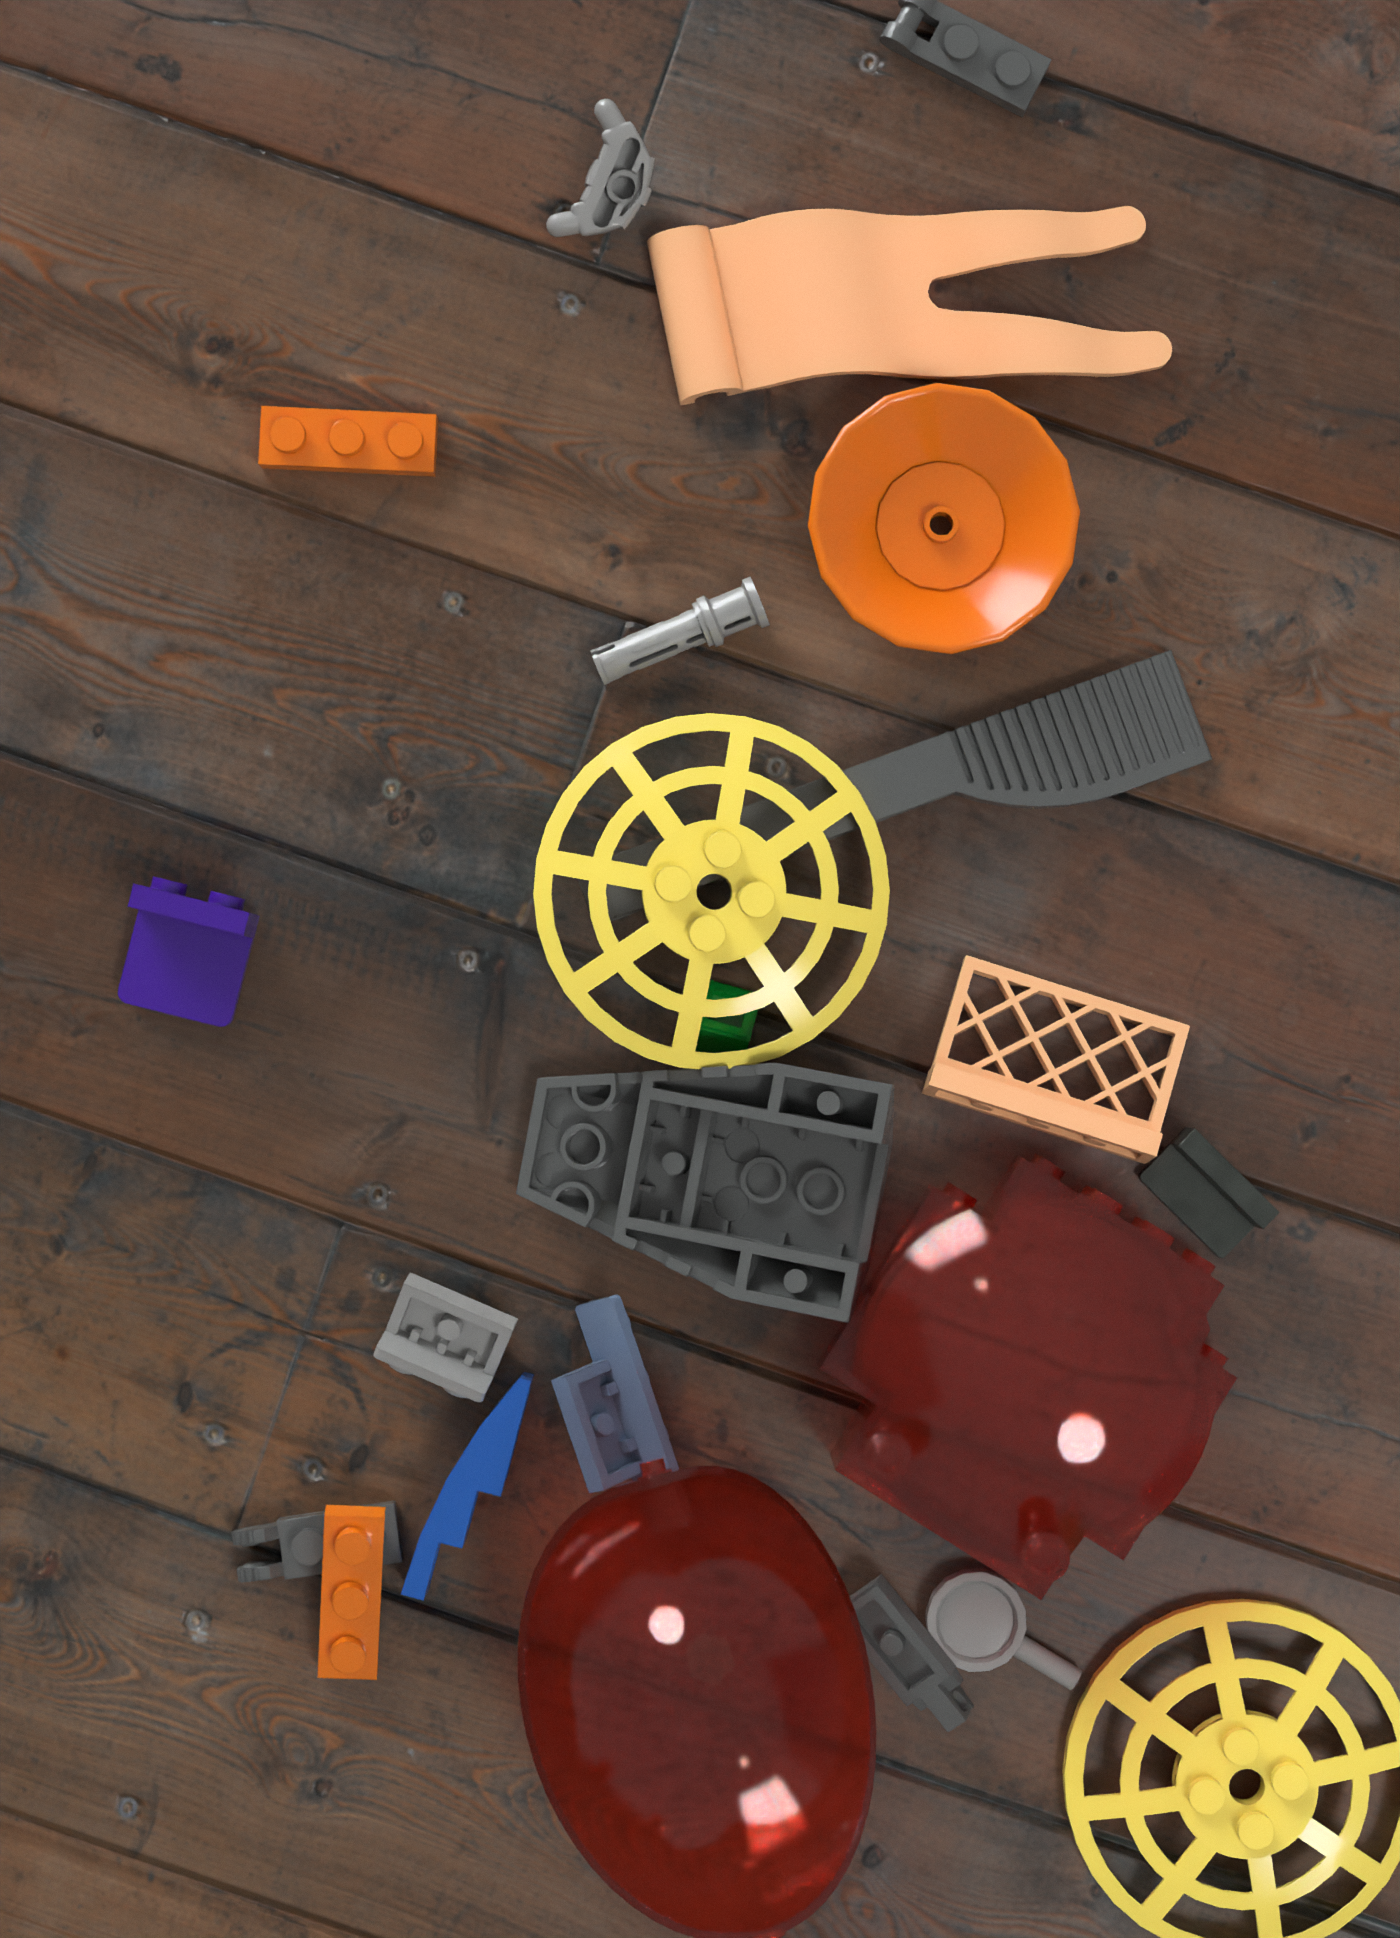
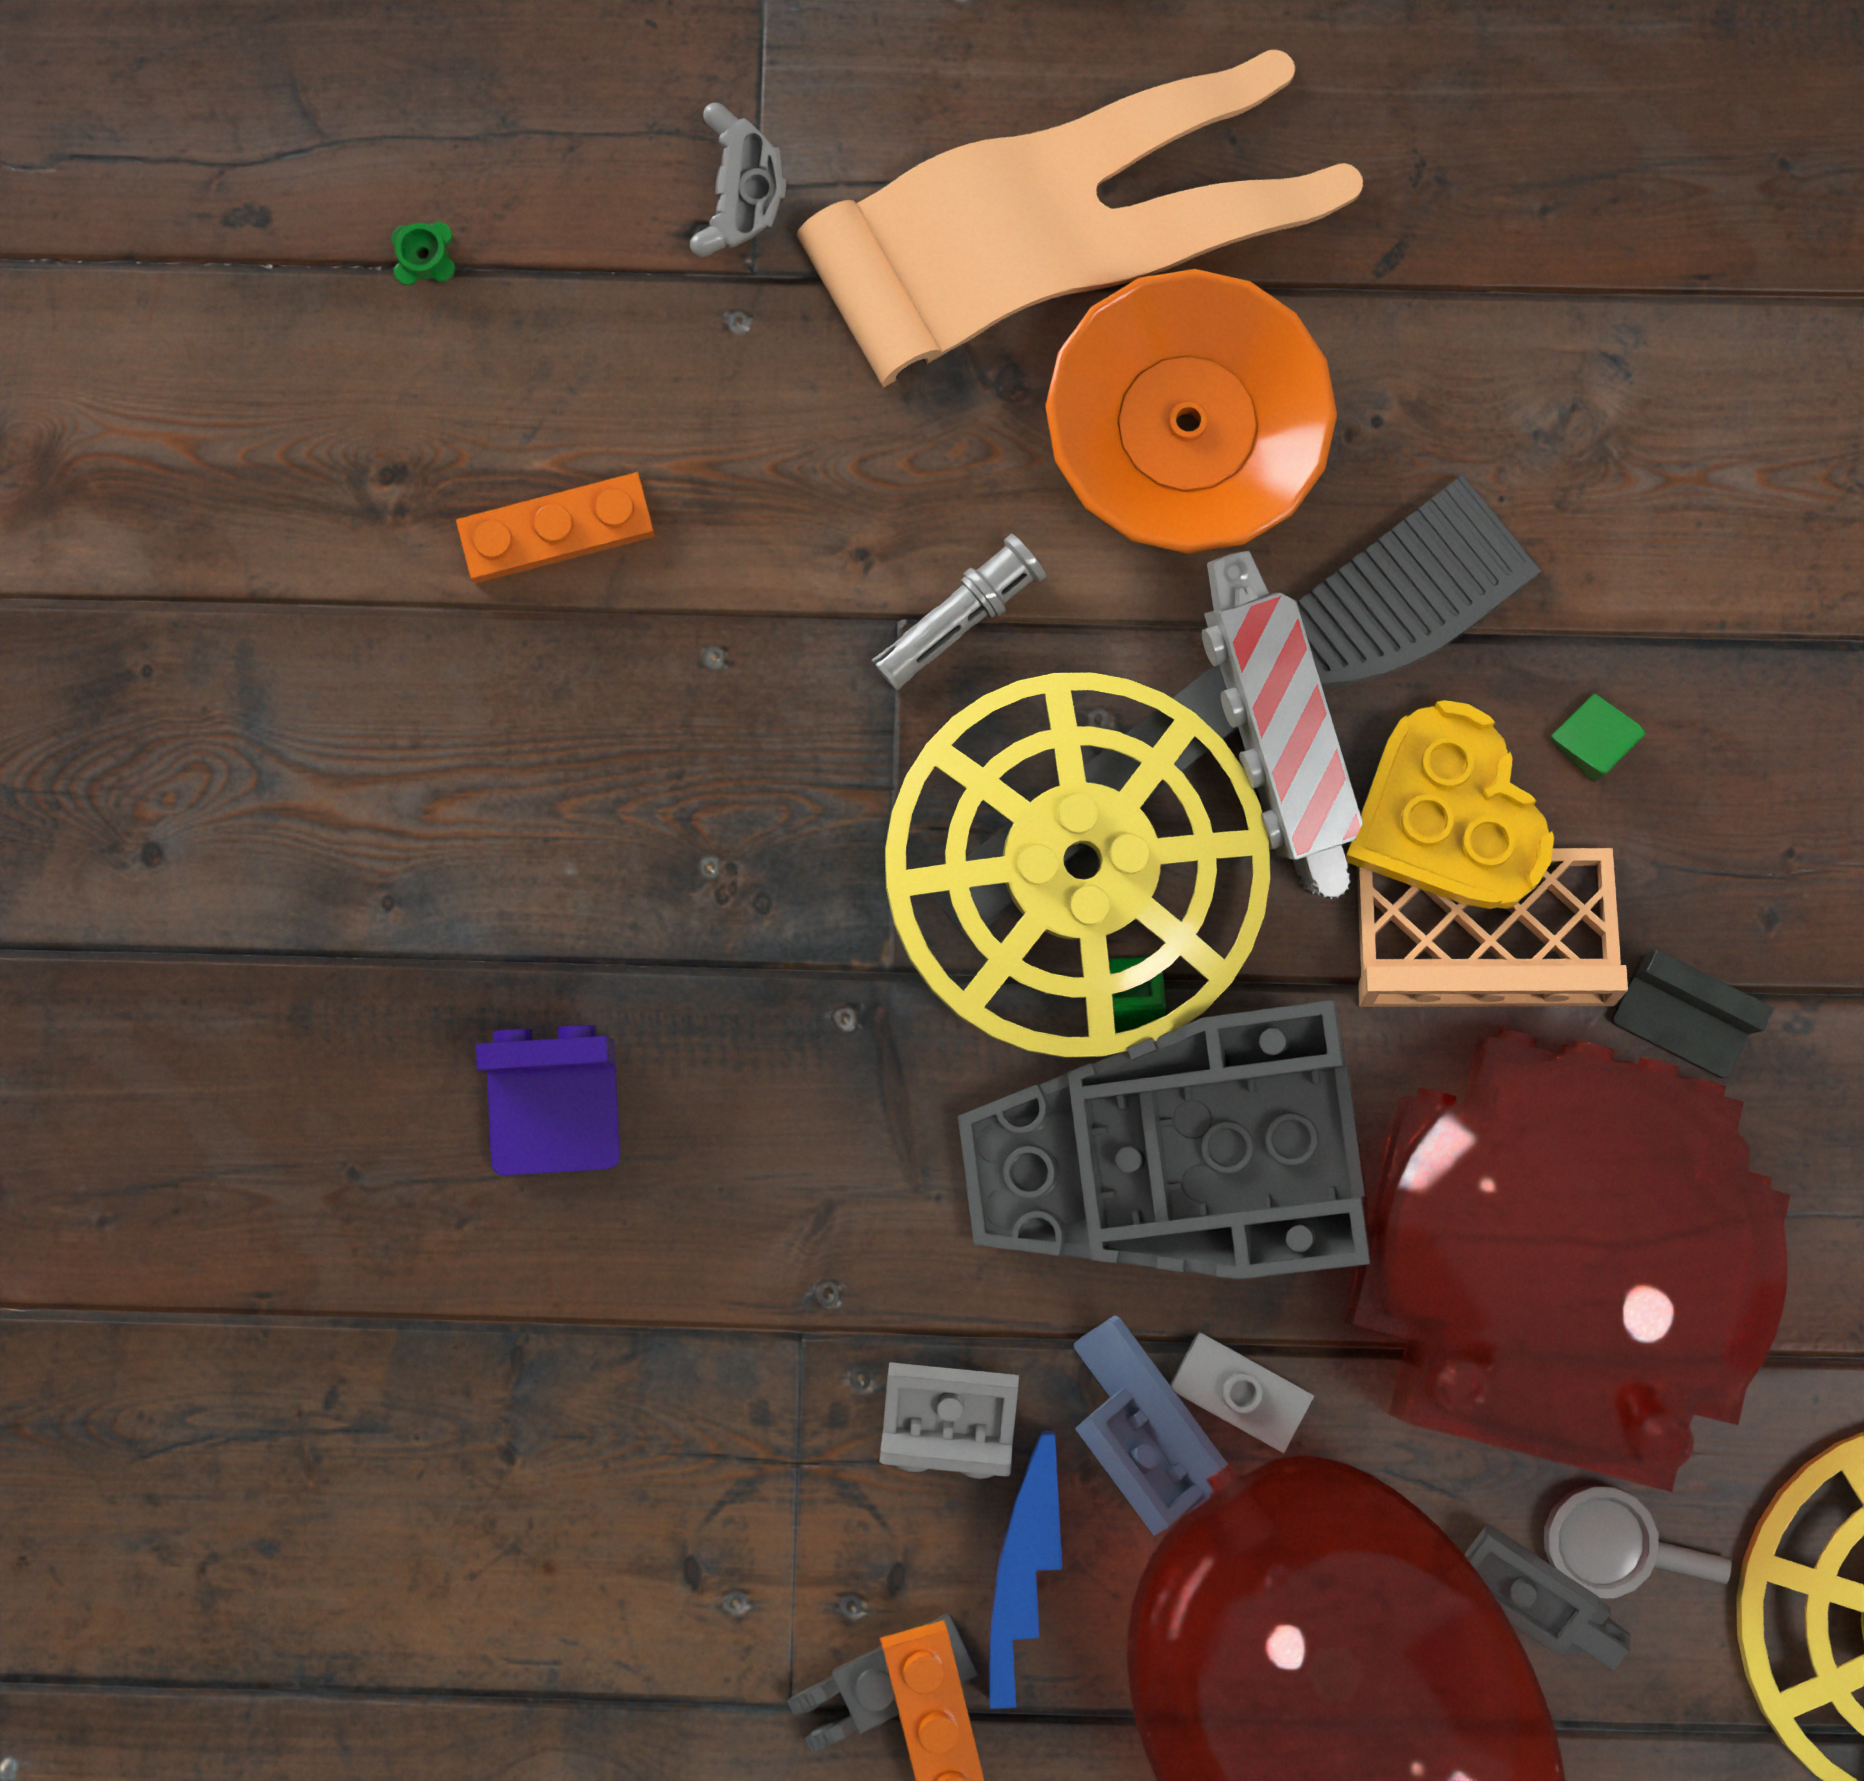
camera: 15 degrees left, 5 degrees down
(299, 136) = (410, 240): none -> green plate
(707, 1394) = (1241, 1392): none -> light grey plate
(932, 824) = (1282, 723): none -> light grey hinge
(1055, 950) = (1448, 813): none -> yellow plate
(1210, 923) = (1597, 737): none -> green slope

